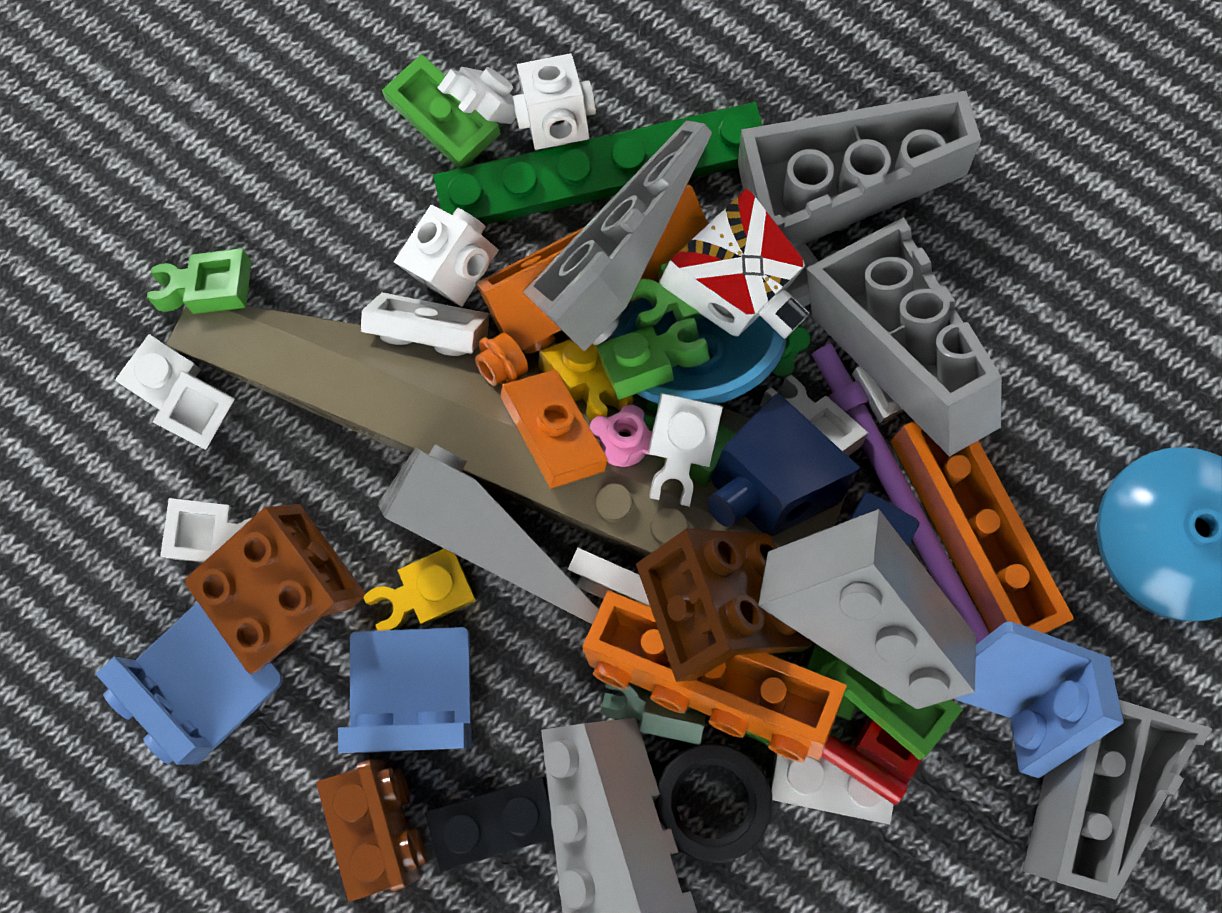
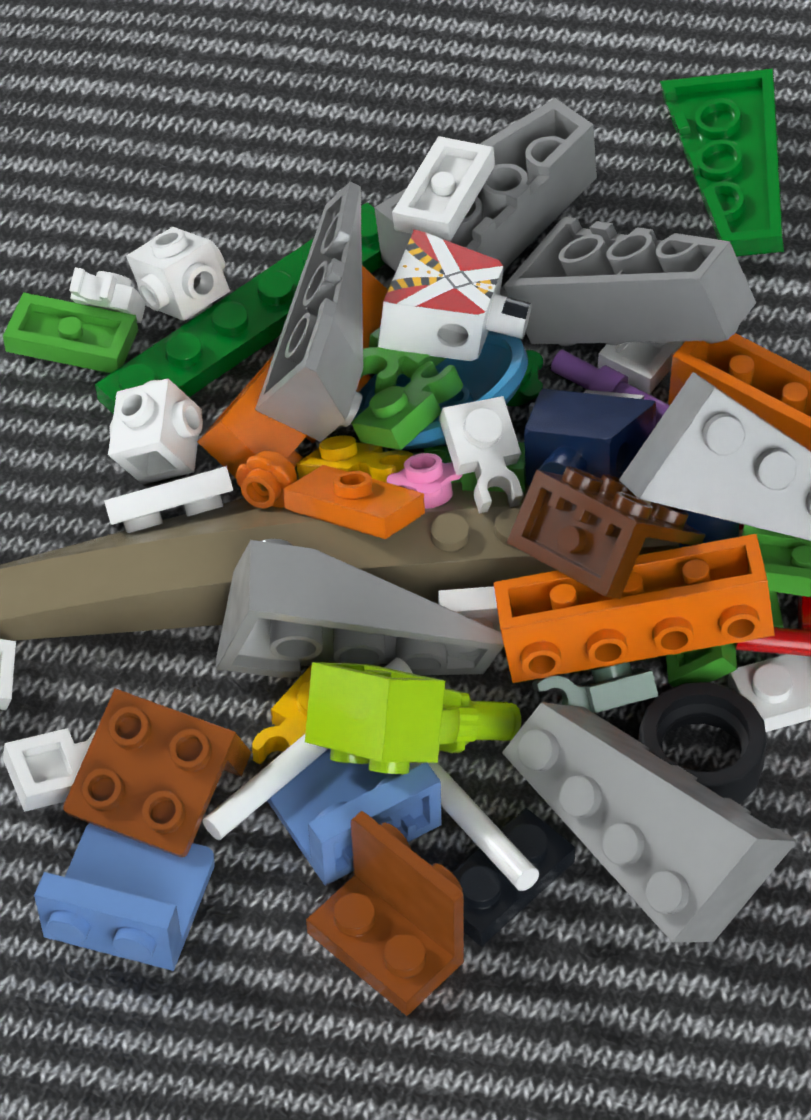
camera: 30 degrees left, 25 degrees down
(400, 629) = (269, 780): none -> white bar
(465, 669) = (397, 717): none -> lime brick
(484, 745) = (484, 831): none -> white bar
(803, 151) = (444, 188): none -> white plate
(1102, 205) = (733, 153): none -> green wing

